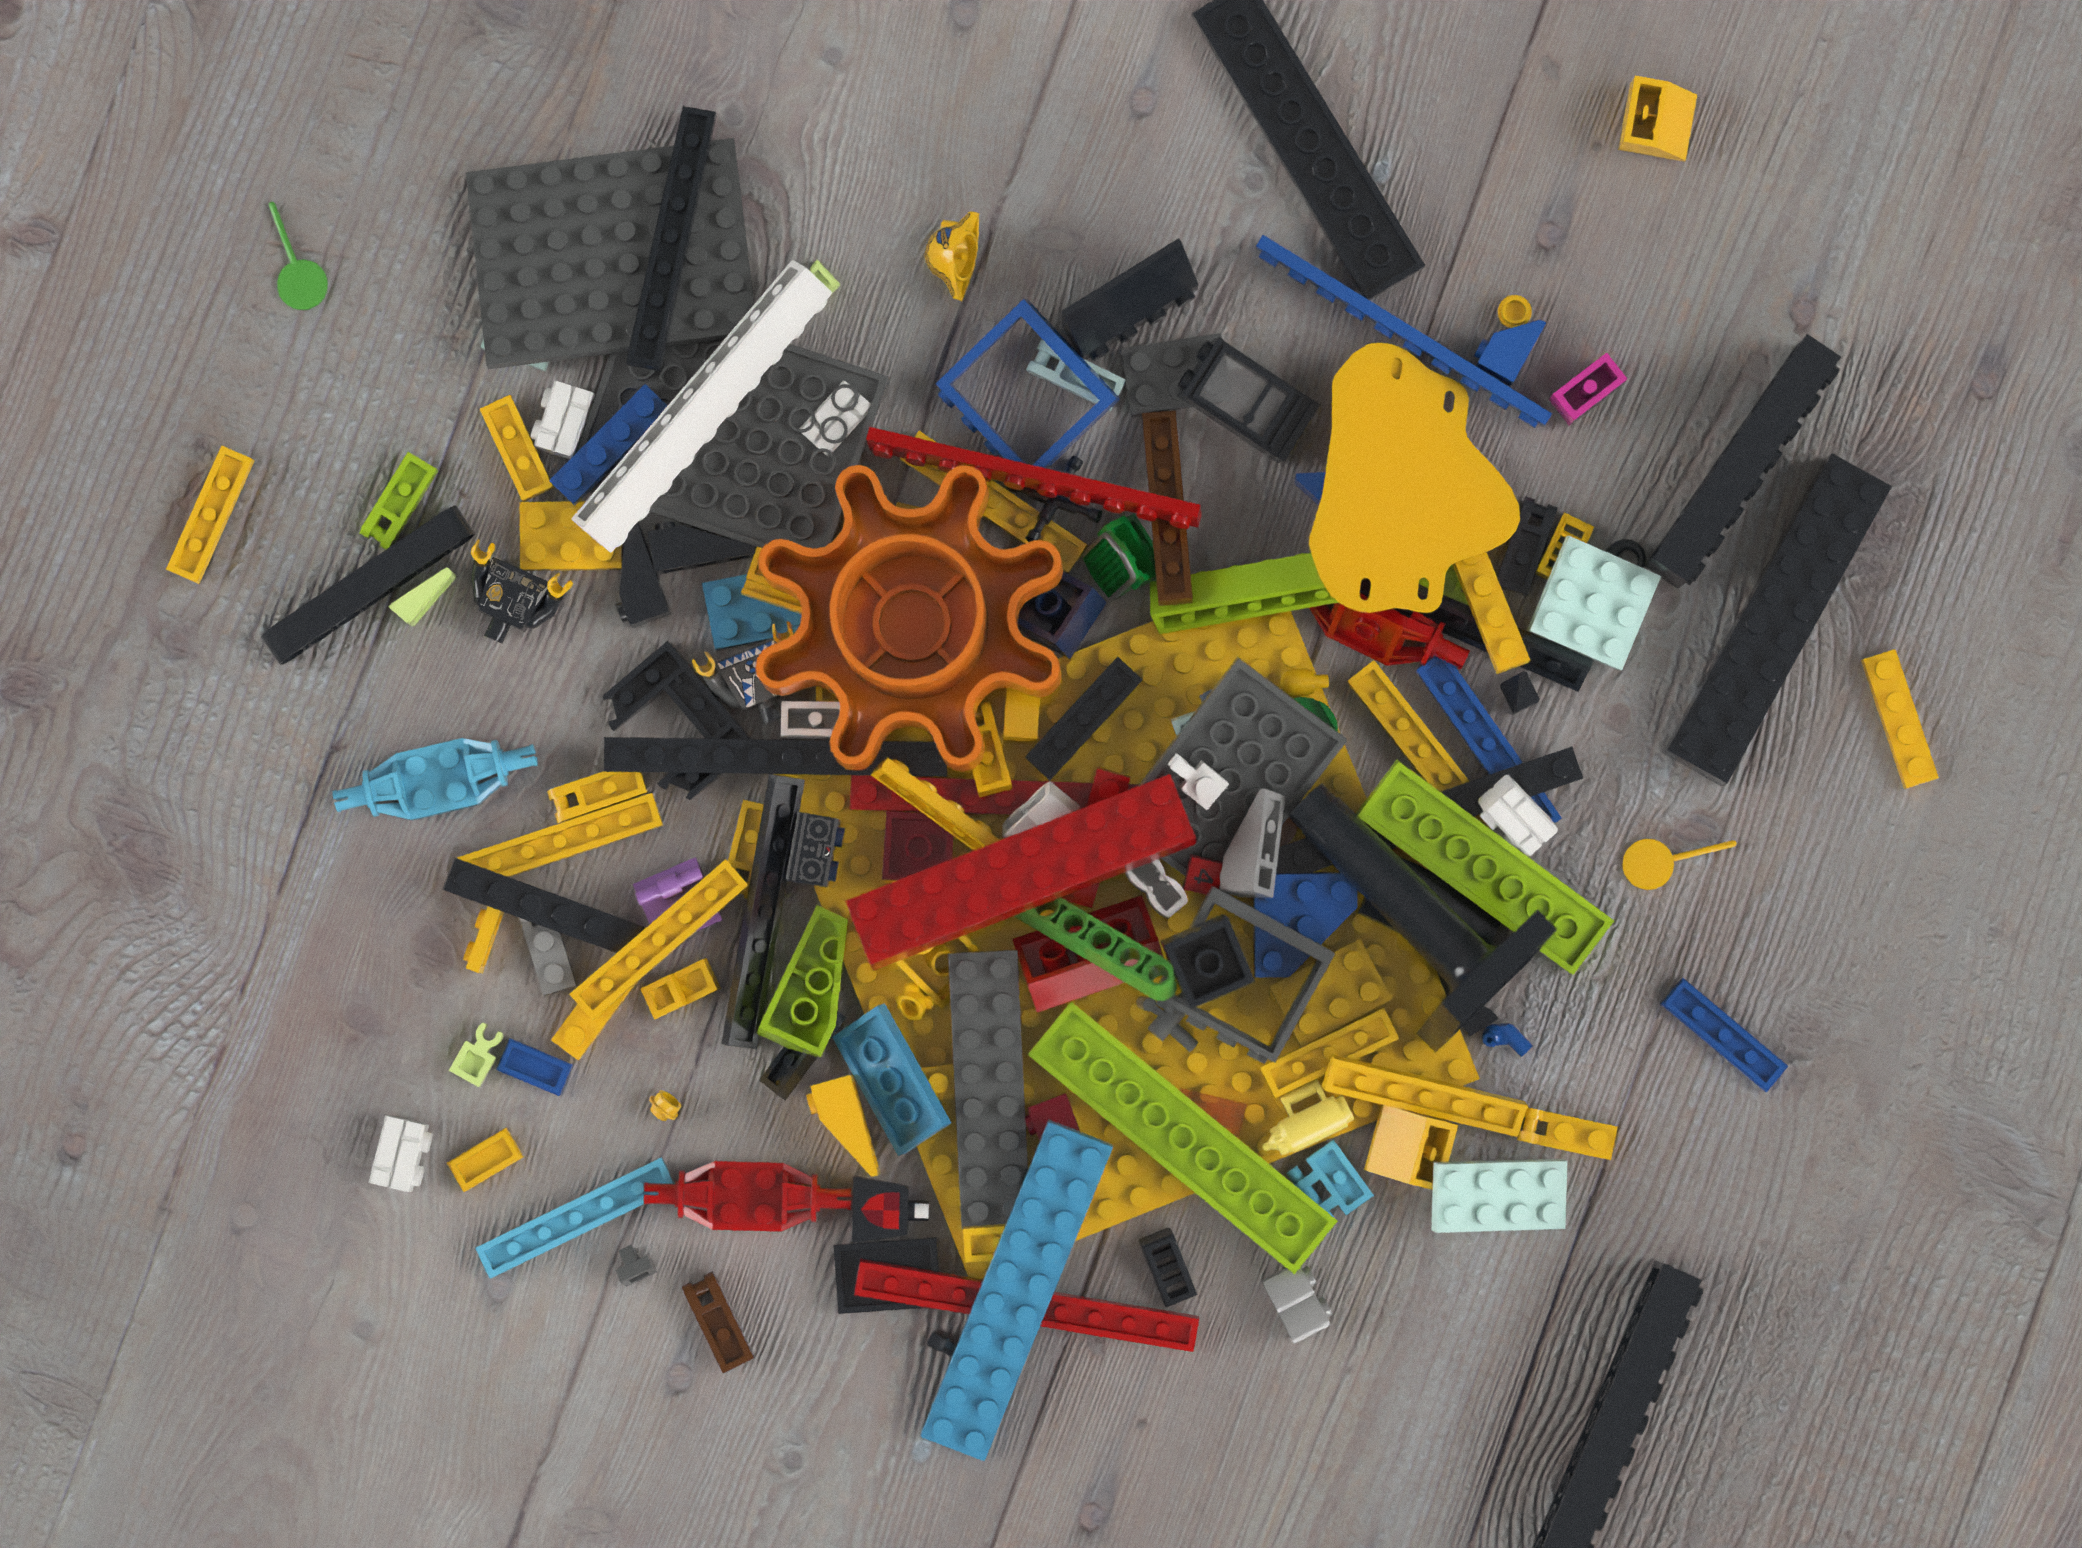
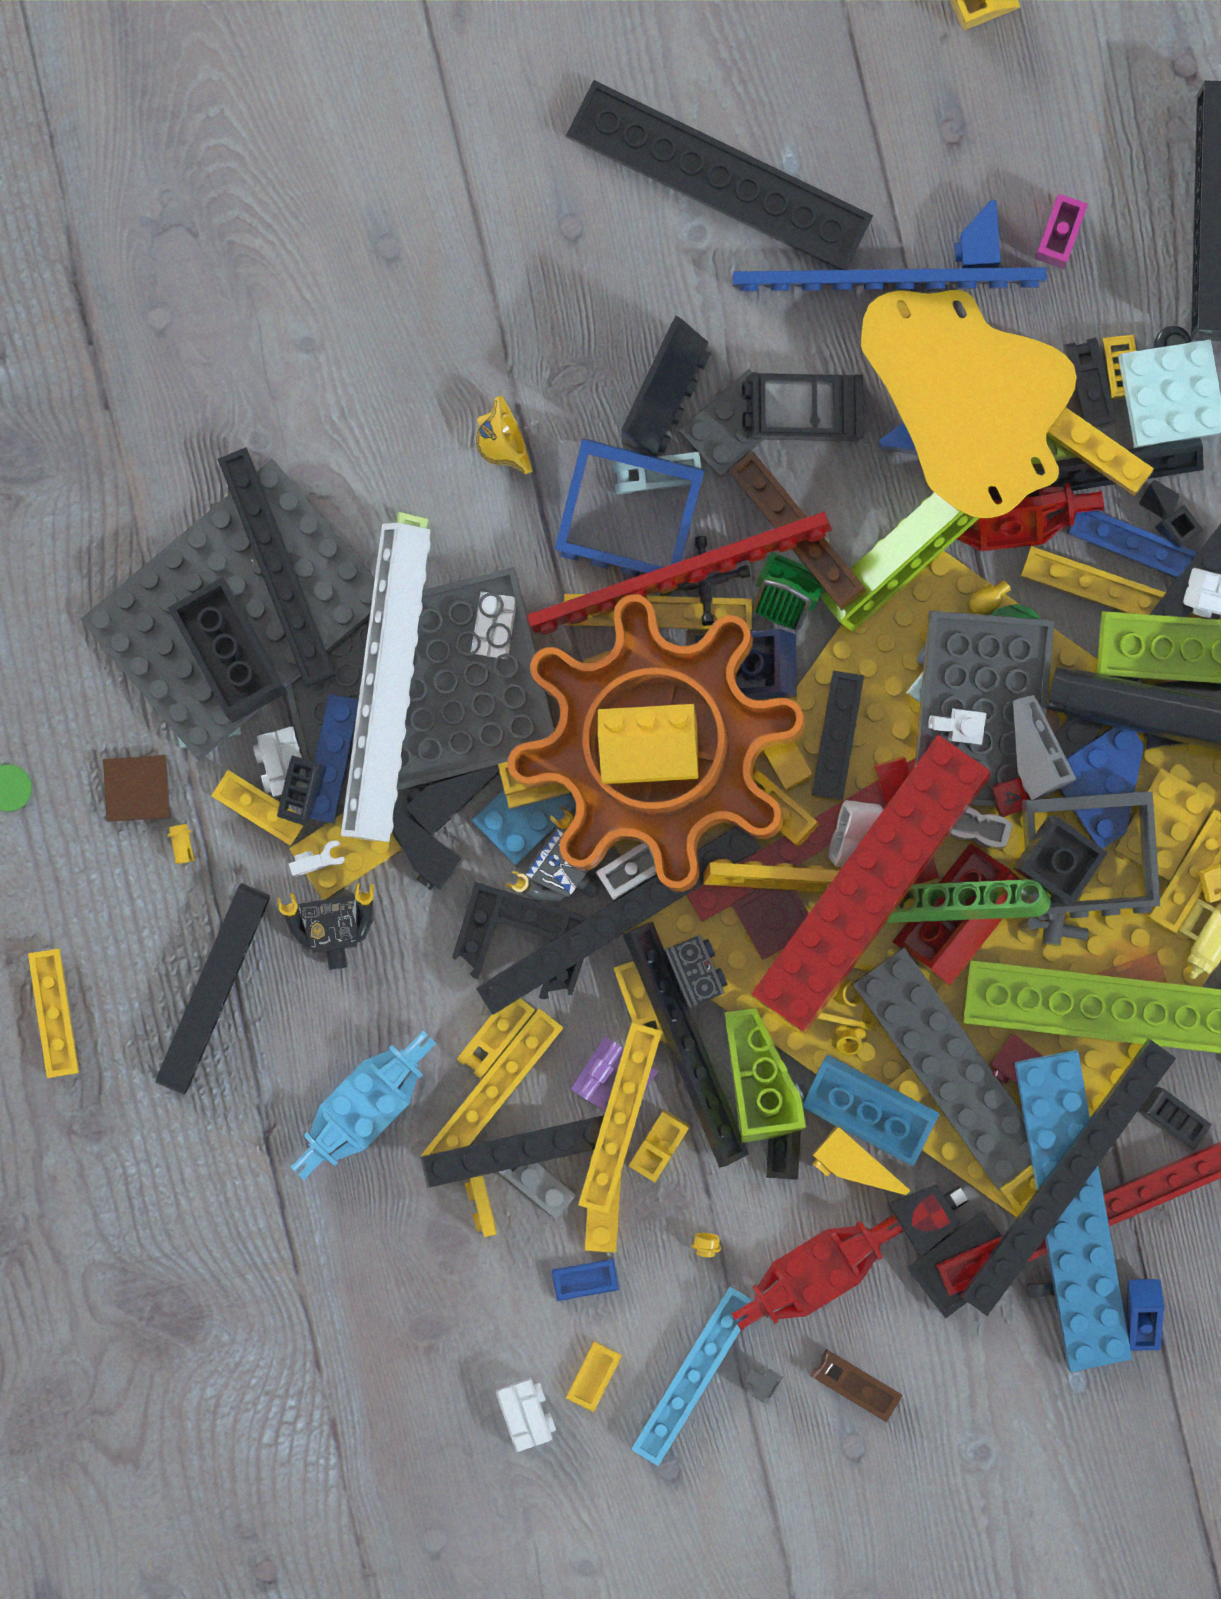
camera: 30 degrees left, 0 degrees up
(399, 500) = (194, 907): lime plate -> none
(417, 359) = (136, 788): none -> reddish brown tile
(418, 601) = (260, 975): yellowish green slope -> none
(425, 435) = (181, 843): none -> yellow pin
(475, 1060) = (535, 1305): yellowish green plate -> none
(526, 525) = (307, 862): none -> white plate
(576, 284) = (227, 650): none -> black brick
(576, 457) = (314, 782): none -> black slope
(897, 611) = (648, 743): none -> yellow slope
(1022, 1428) = (1145, 1314): none -> blue slope
(1029, 1255) = (1067, 1177): none -> black plate
(1514, 311) = (964, 207): yellow plate -> none
(1521, 729) = (1179, 527): none -> black slope

